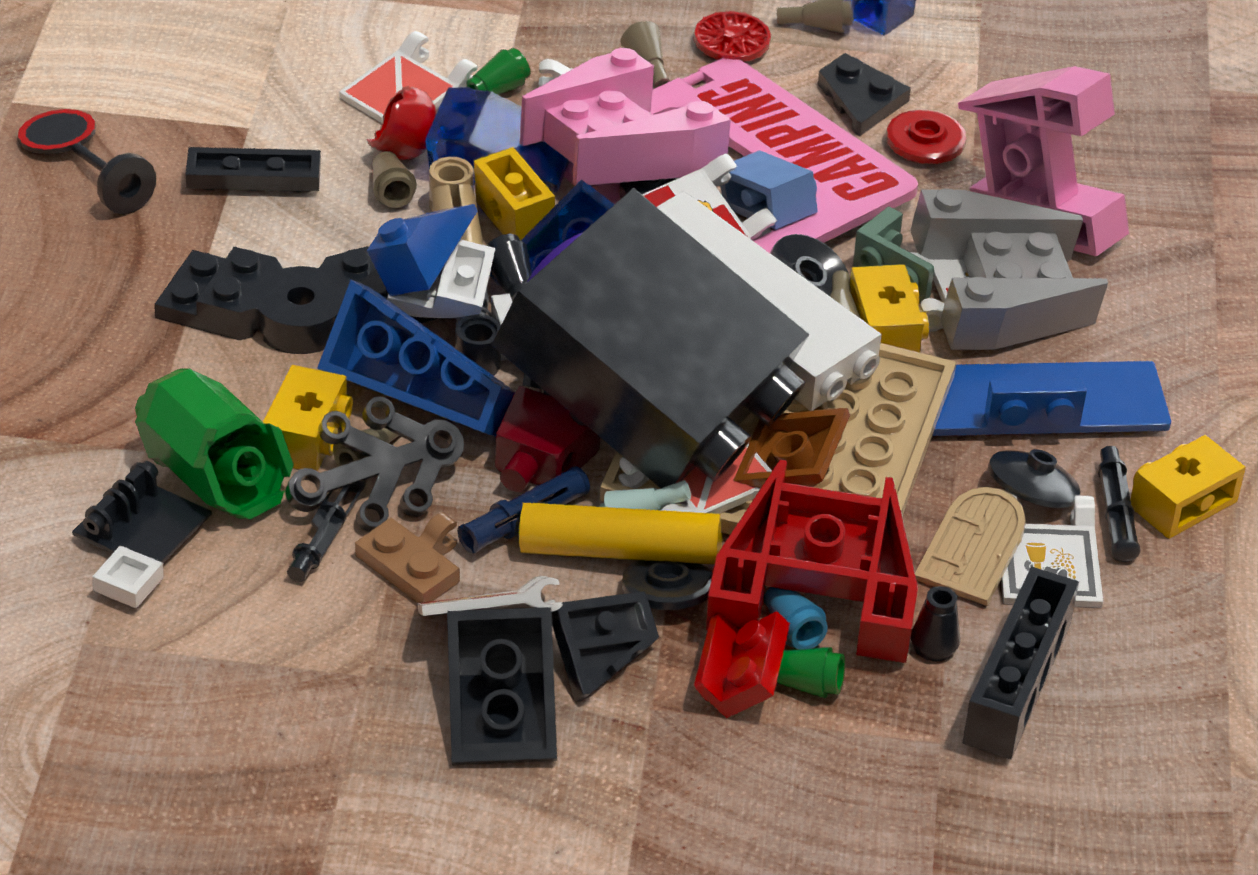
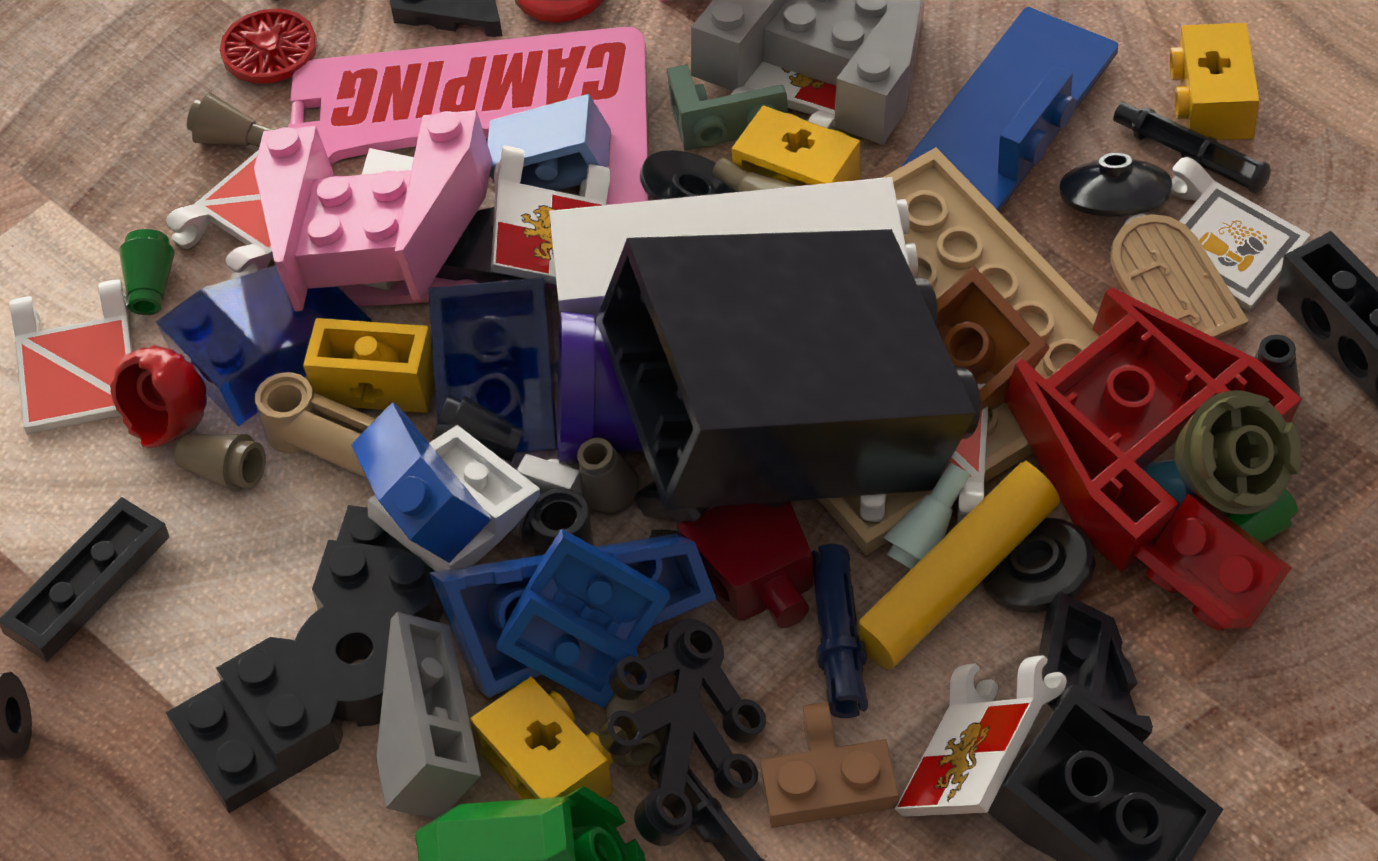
camera: 45 degrees left, 10 degrees up
(276, 346) = (424, 726): none -> light grey slope
(401, 363) = (581, 617): none -> blue slope
(818, 604) = (1238, 452): none -> olive cone

